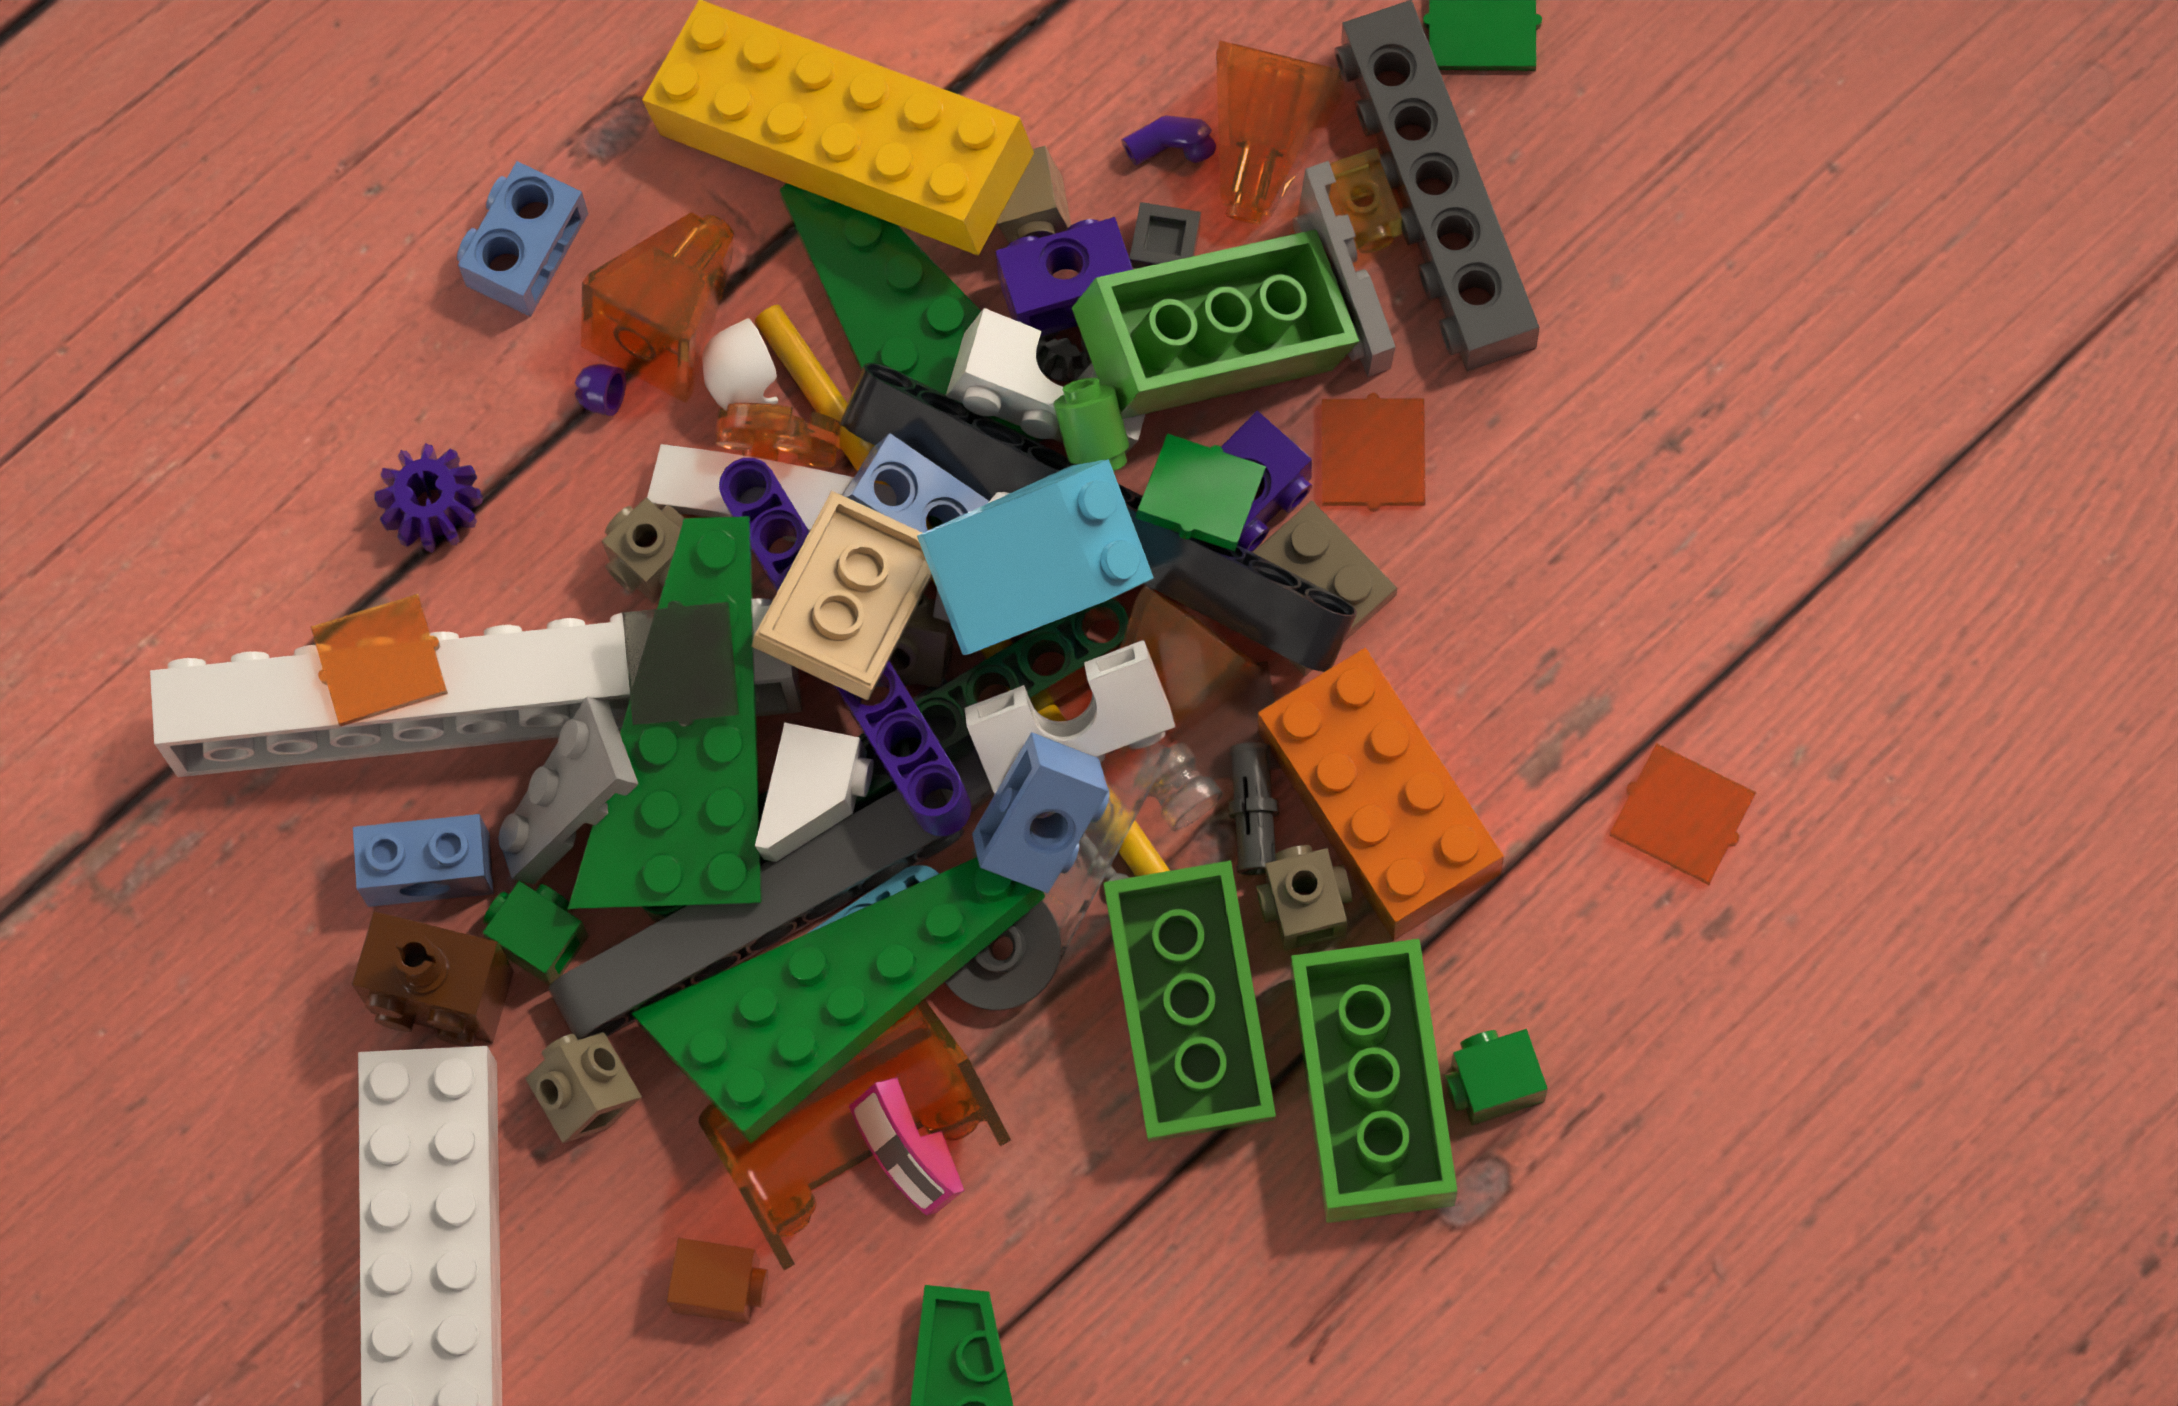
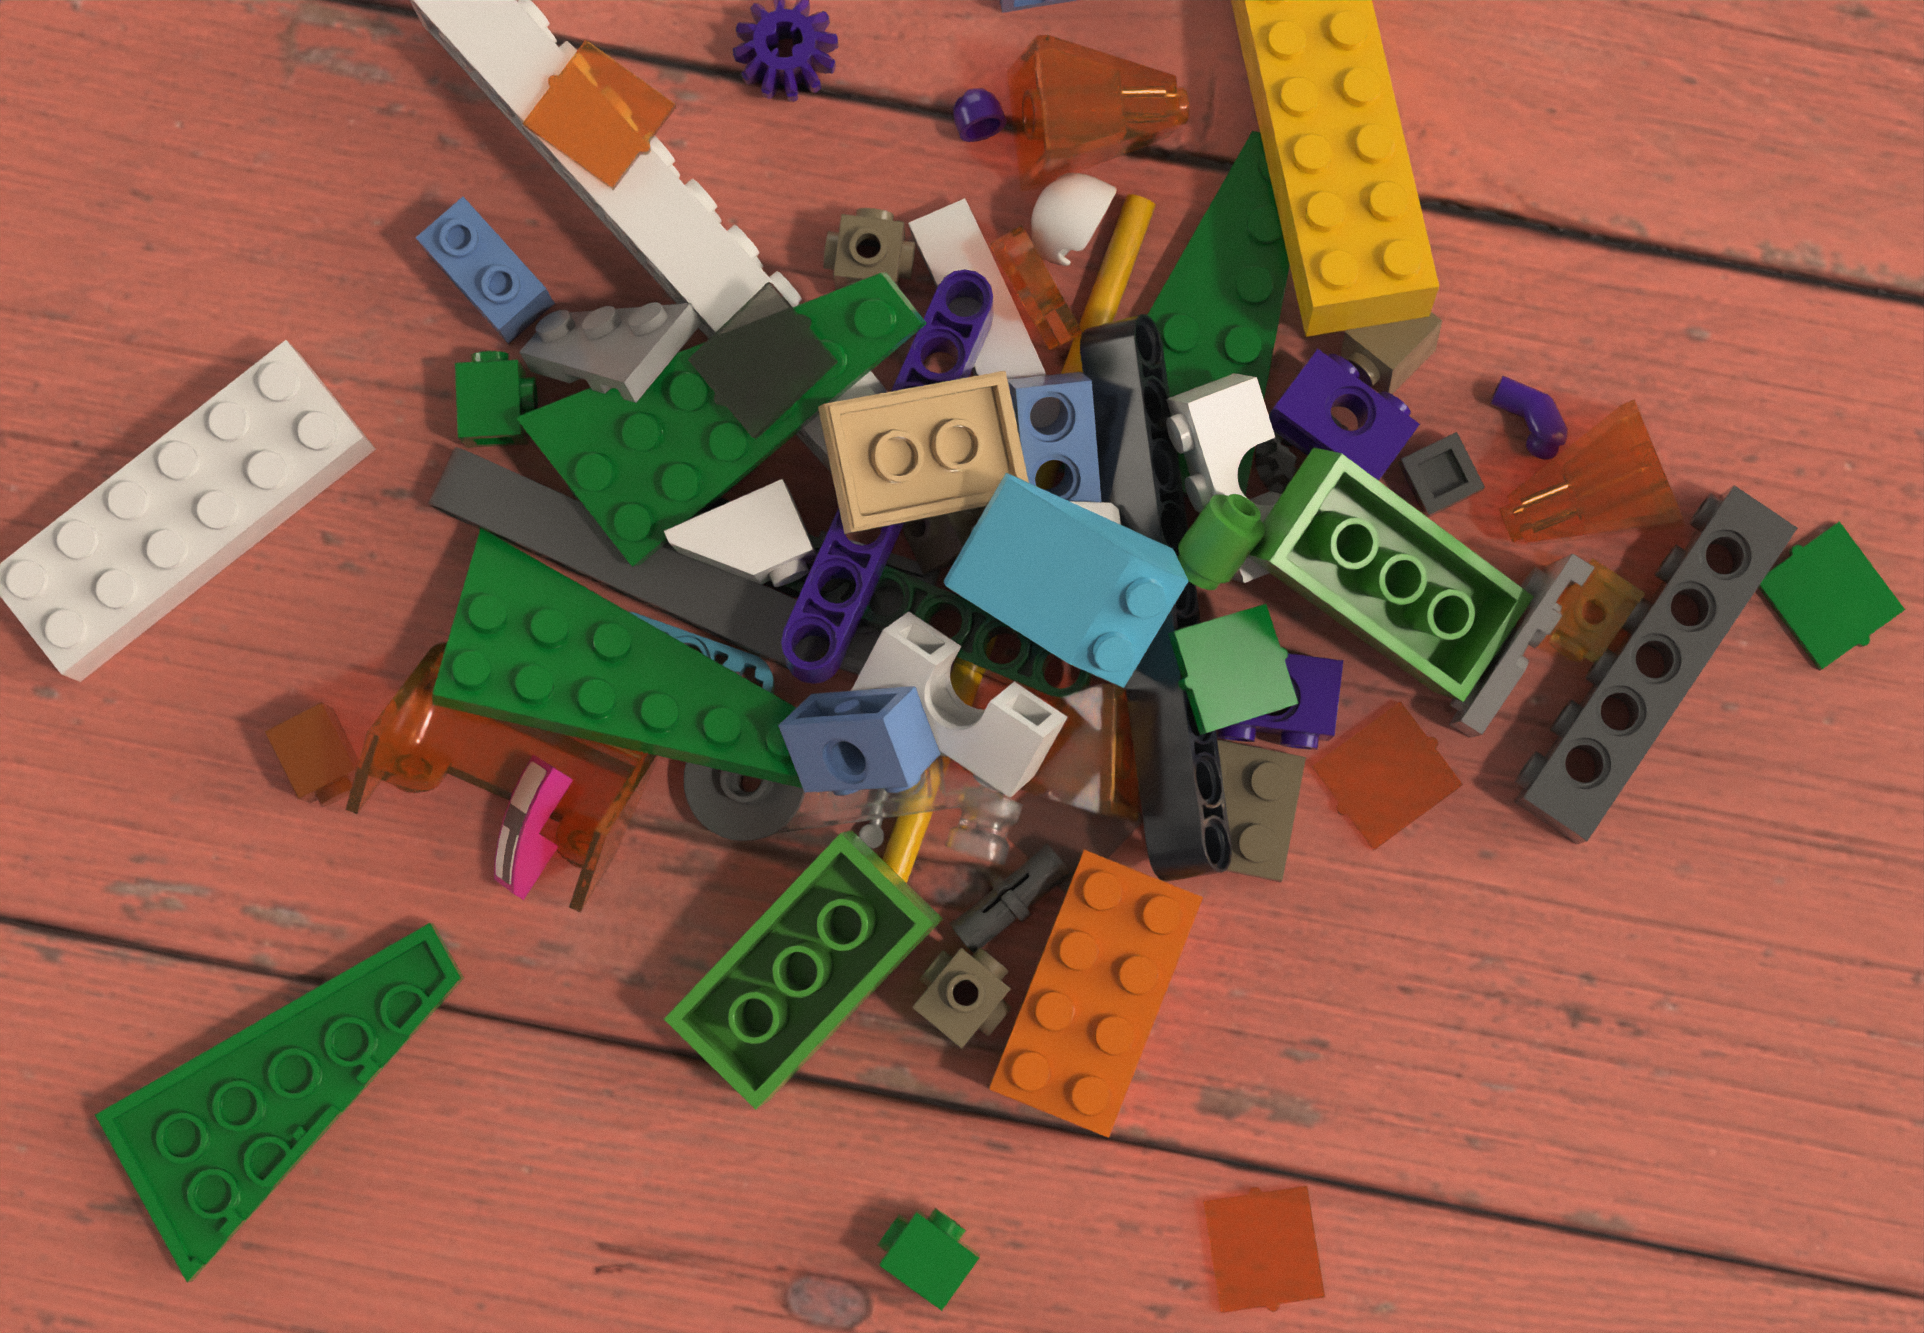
camera: 50 degrees right, 10 degrees up
(432, 979) = (388, 350): reddish brown brick -> none
(582, 1086) = (393, 532): dark tan brick -> none
(1373, 1081) = (847, 1163): bright green brick -> none

